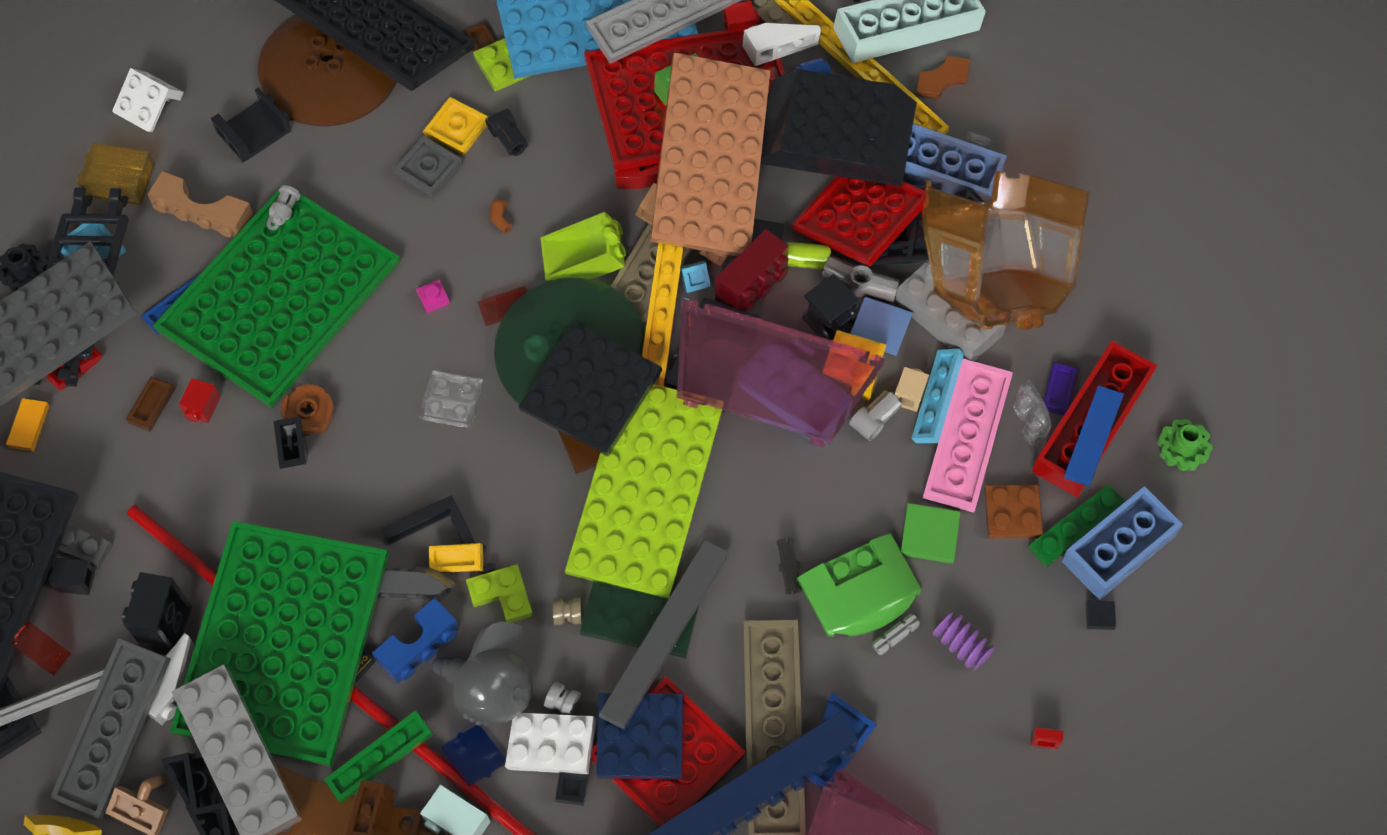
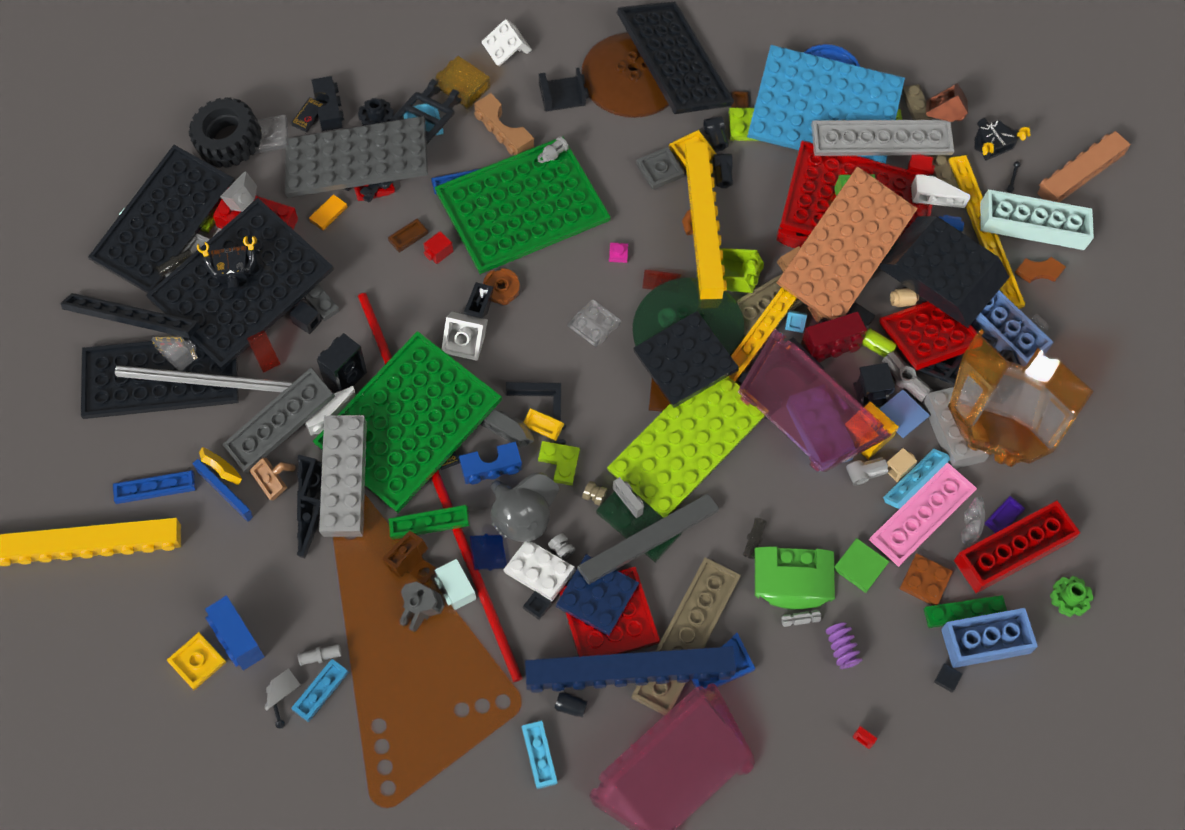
camera: 25 degrees right, 0 degrees up
(294, 496) = (464, 335): none -> white slope
(469, 85) = (715, 129): none -> black piece
(520, 207) = (704, 221): none -> yellow brick
(604, 591) = (625, 493): none -> light grey plate
(806, 186) = (903, 297): none -> tan brick
(1093, 436) = (1008, 556): blue tile -> none

